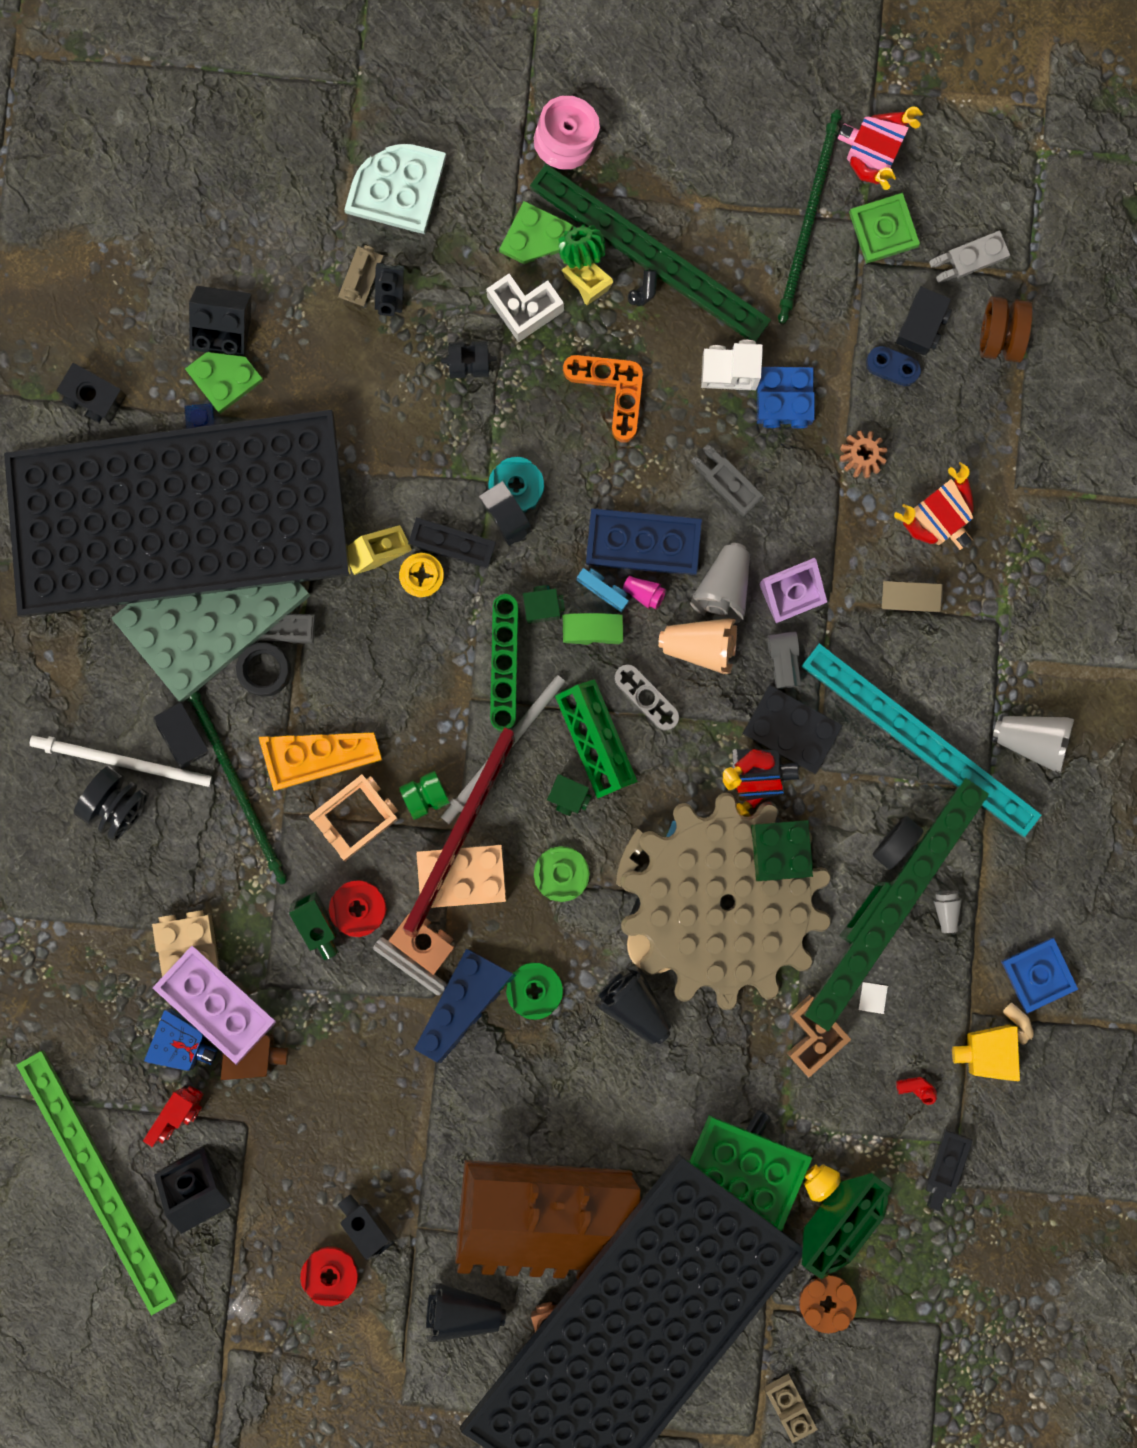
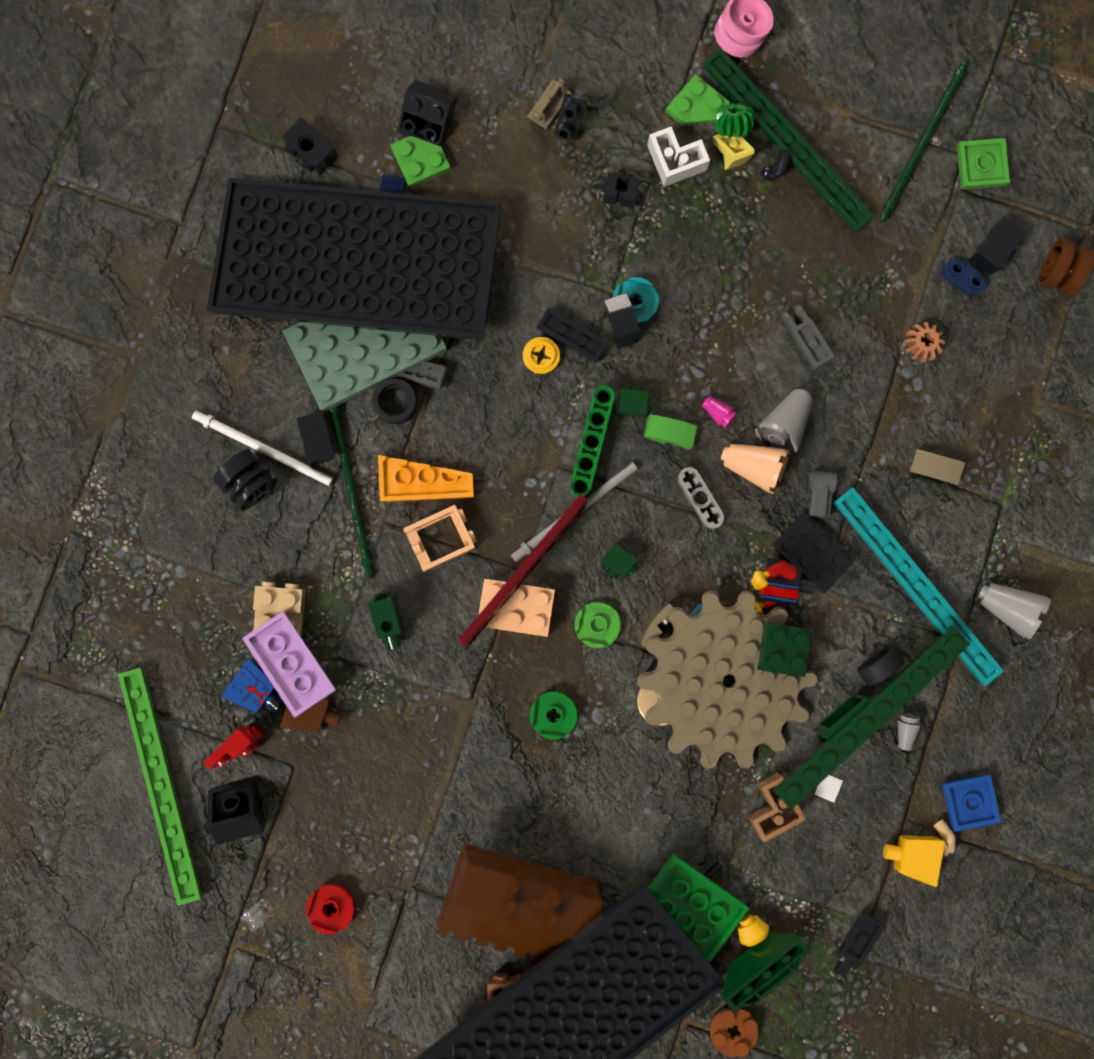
camera: 15 degrees right, 0 degrees up
(345, 898) = (415, 622): red plate -> none
(375, 1235) = (373, 886): black torso -> none
(377, 549) = (510, 325): light yellow slope -> none
(397, 186) = (596, 39): light aqua plate -> none
(409, 966) = (456, 670): light grey axle -> none
(424, 795) = (501, 534): green wheel -> none
(430, 958) = (474, 668): nougat brick -> none
(461, 1314) = (430, 967): black cone -> none
(467, 995) = (491, 712): dark blue wing -> none
(593, 581) = (692, 408): dark azure plate -> none
(600, 736) = (656, 520): green fence -> none
(622, 386) = (739, 240): orange beam -> none
(635, 1006) = (632, 747): black cone -> none
(643, 541) = (728, 371): dark blue plate -> none
(732, 368) = (833, 247): white brick -> none
(785, 397) = (870, 281): blue plate -> none
(794, 590) = (841, 439): lavender slope -> none
(877, 144) = (994, 93): torso -> none
(919, 1087) = (850, 870): red arm -> none
(943, 512) = (979, 404): torso -> none
(972, 257) = (1049, 204): light grey hinge -> none

